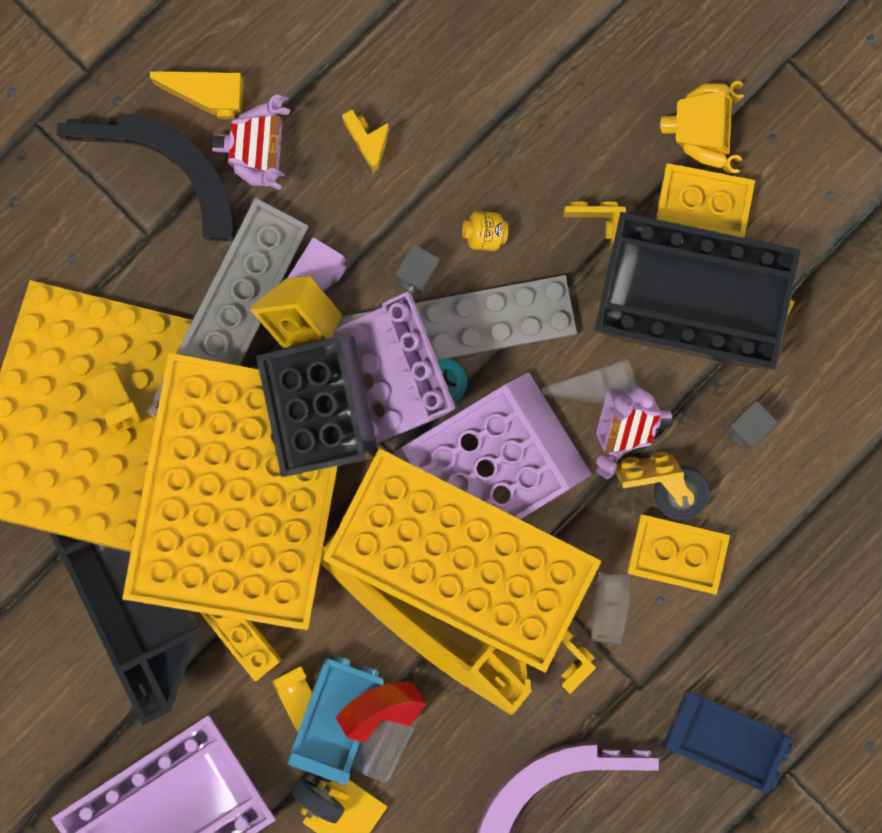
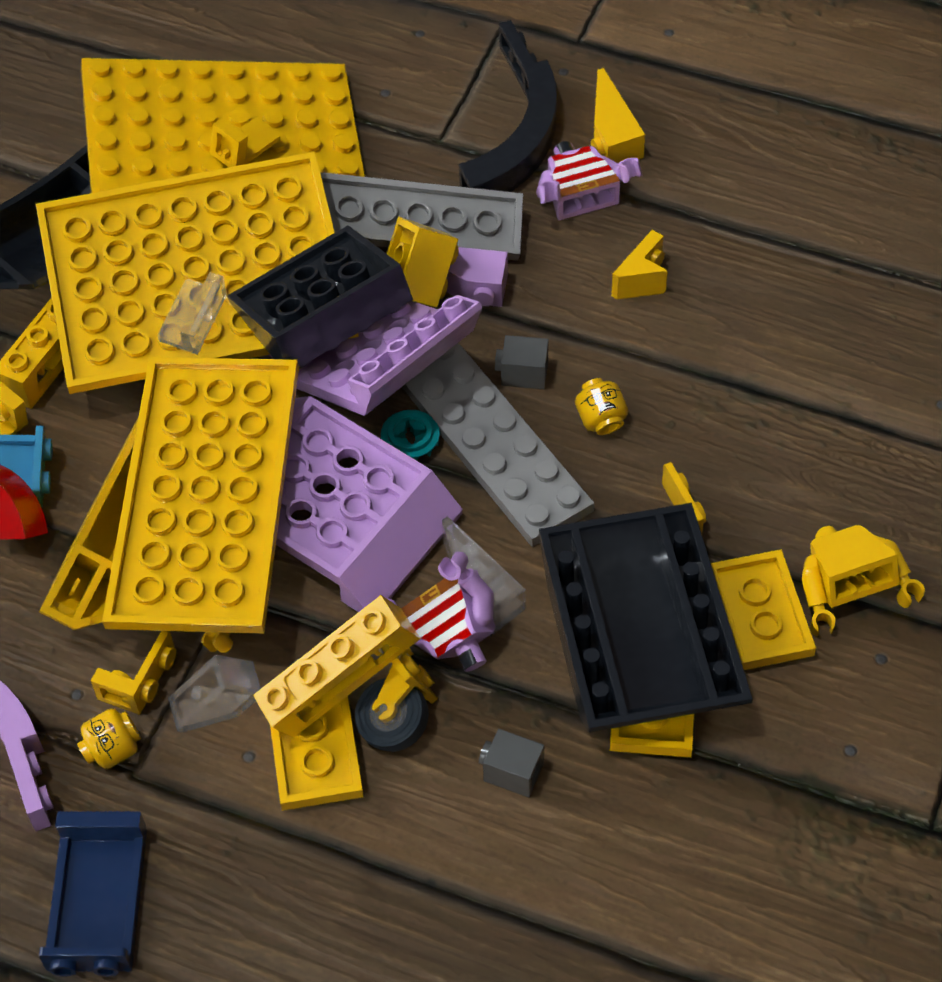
camera: 70 degrees right, 30 degrees down
(287, 511) = (193, 313): none -> clear panel
(615, 694) = (109, 738): none -> yellow head
(654, 520) = (336, 666): none -> yellow brick

